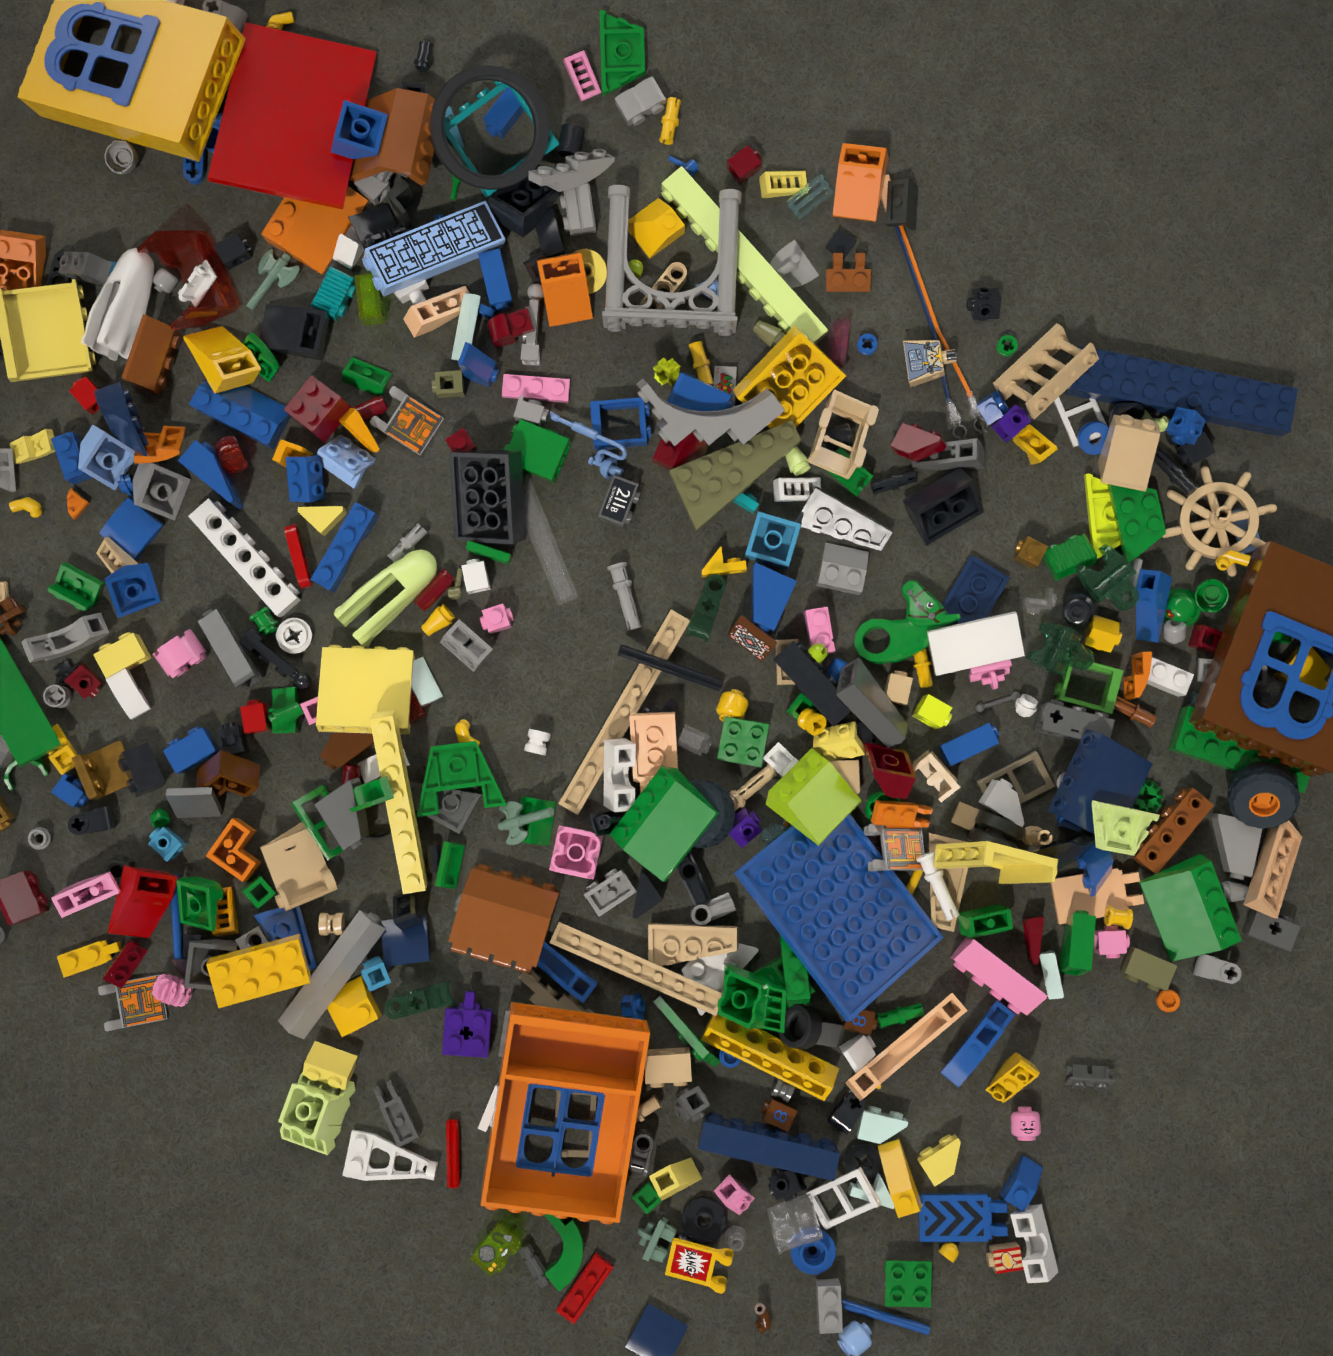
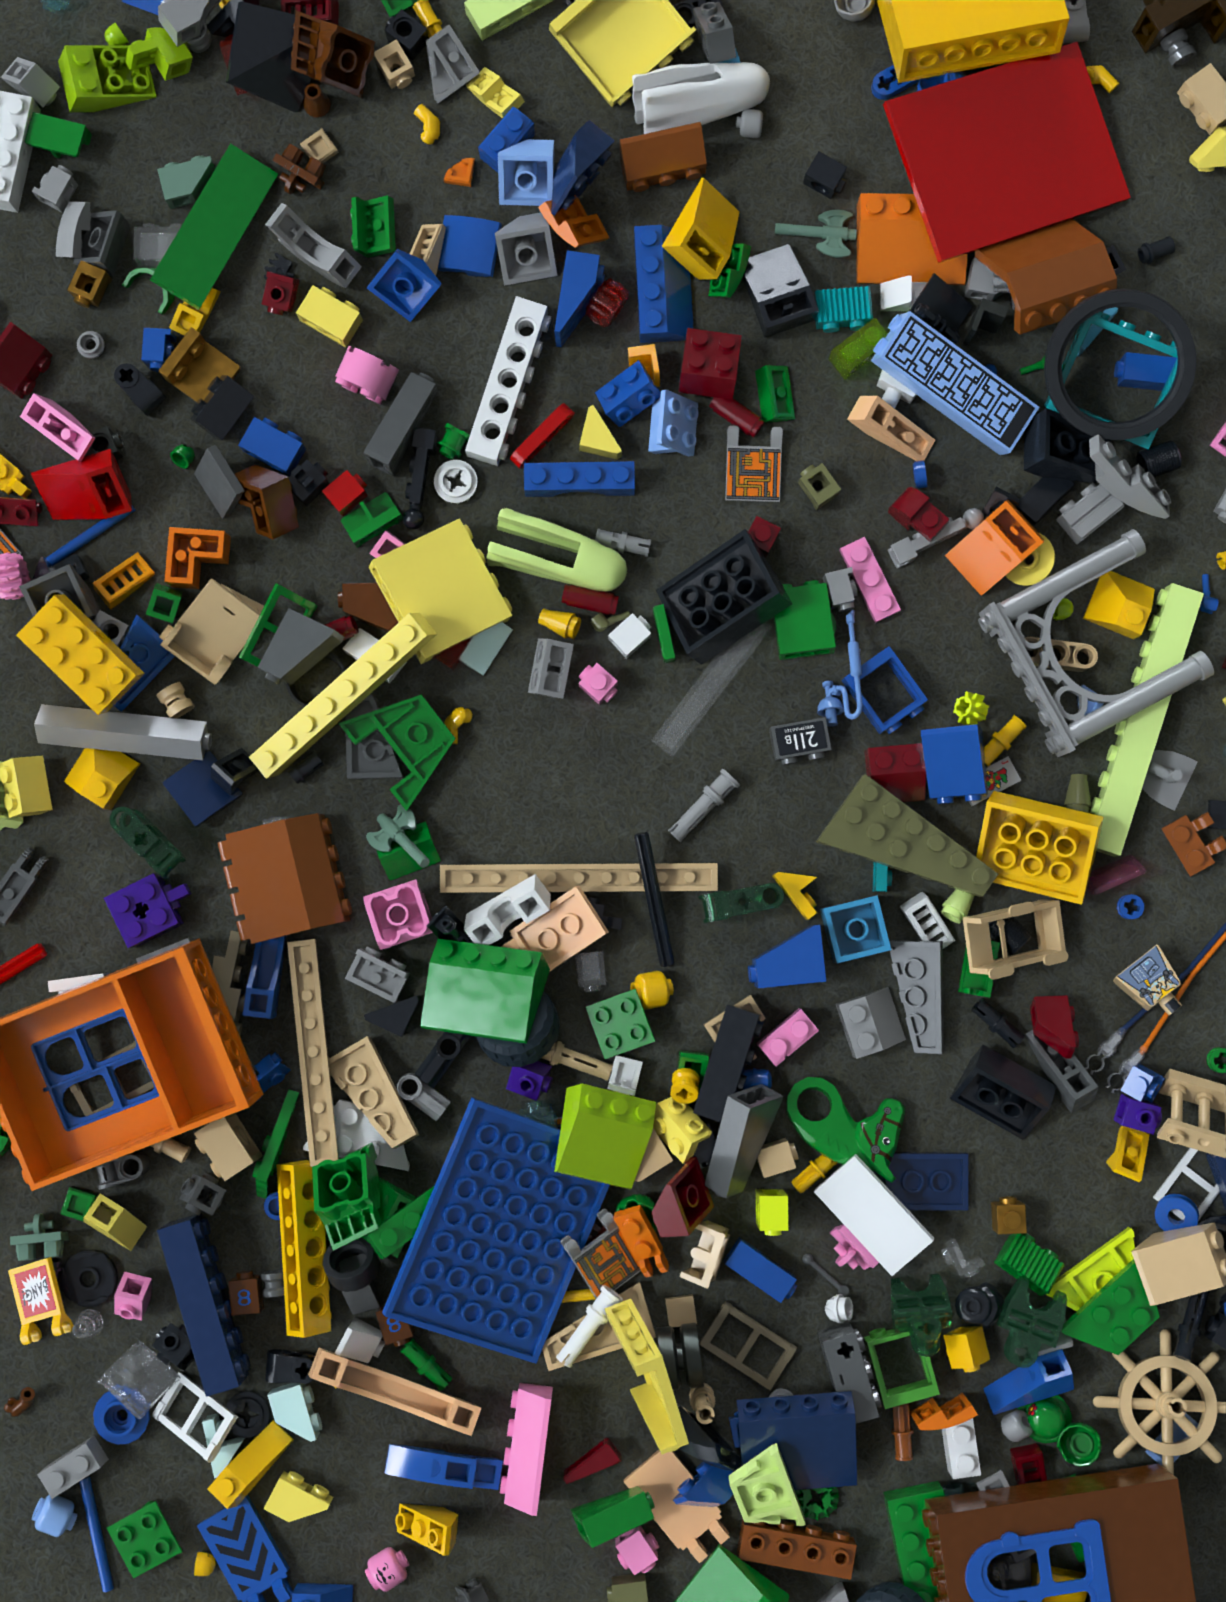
camera: 60 degrees right, 0 degrees up
(54, 693) = (245, 270): light grey wheel -> none
(83, 392) = (581, 110): red brick -> none
(125, 484) = (512, 211): blue plate -> none
(128, 694) = (292, 345): white slope -> none
(174, 843) = (164, 487): dark azure brick -> none
(184, 251) = (781, 157): clear red windscreen -> none
(198, 285) = (767, 160): white hinge -> none
(198, 901) = (118, 548): green slope -> none
(285, 716) = (363, 522): green cone -> none
(355, 425) = (716, 412): light orange slope -> none
(358, 131) = (1031, 229): blue slope -> none
(372, 793) = (332, 662): green panel -> none
(374, 973) = (148, 777): dark azure brick -> none
(449, 865) = (308, 788): green tile -> none
(466, 323) = (890, 467): light aqua tile -> none
(477, 366) = (856, 504): blue slope -> none
(495, 280) = (960, 468): blue brick -> none
(537, 742) = (492, 803): white wheel -> none
(739, 421) = (961, 817): light grey arch -> none
(752, 638) = (736, 969): reddish brown tile -> none
(818, 652) = (763, 1049): lime hinge -> none
(985, 921) = (579, 1399): green brick -> none
(1003, 801) = (720, 1344): white slope -> none
(1051, 975) = (563, 1505): light aqua slope -> none
(1118, 917) = (667, 1543): yellow bush -> none
(1231, 557) = (1132, 1442): yellow arm -> none

